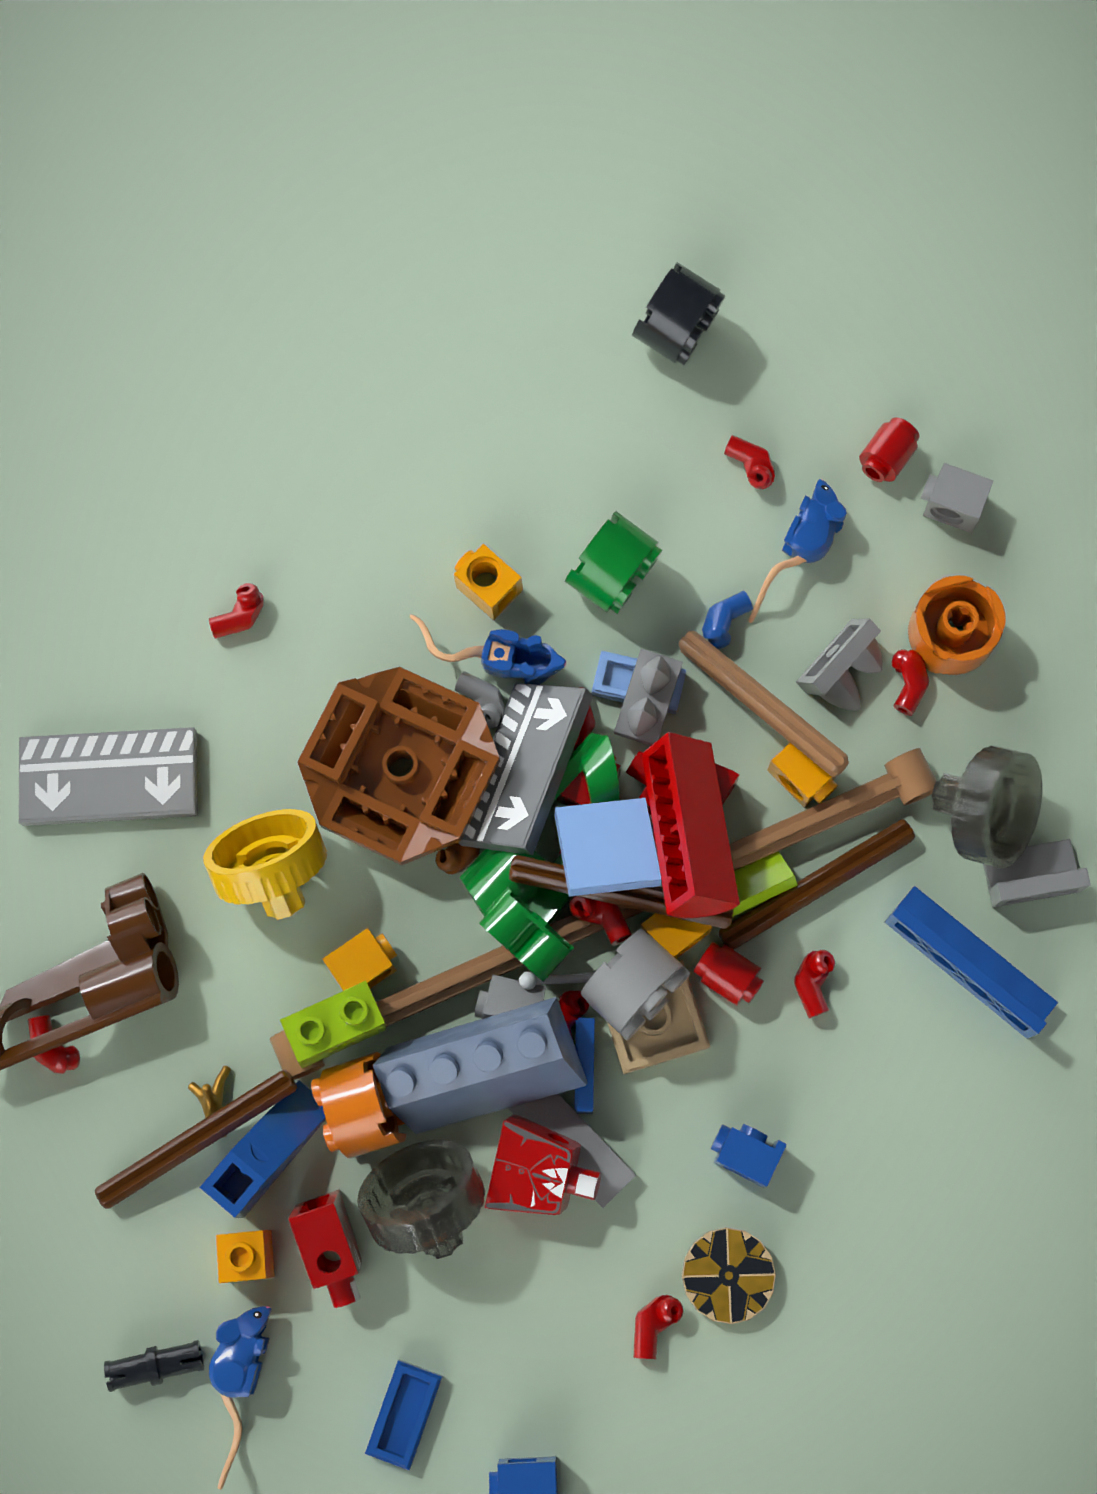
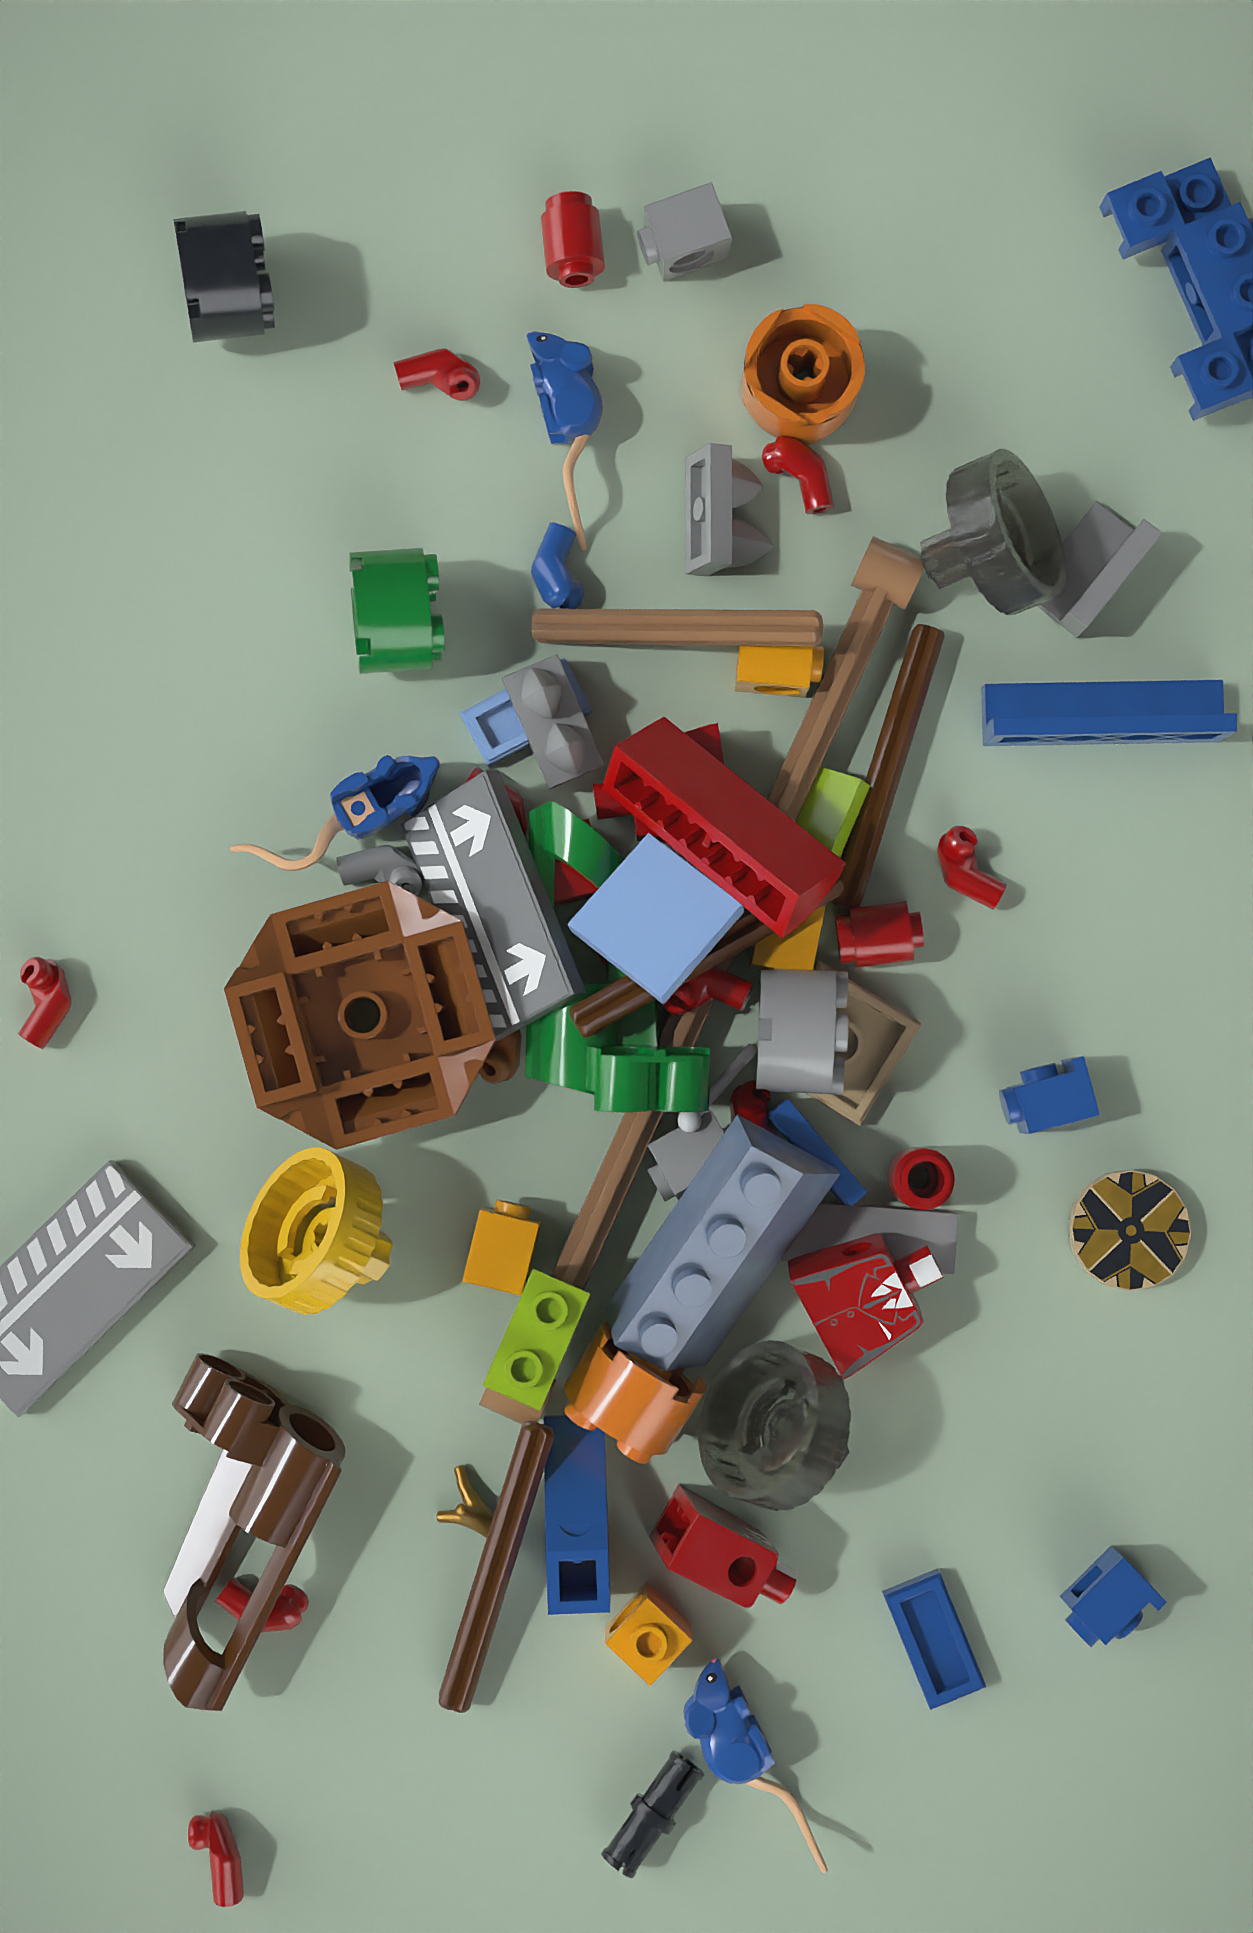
camera: 45 degrees left, 10 degrees up
(493, 598) = (297, 757): light orange brick -> none
(635, 1117) = (939, 1178): none -> red brick
(653, 1320) = (1094, 1337): red arm -> none

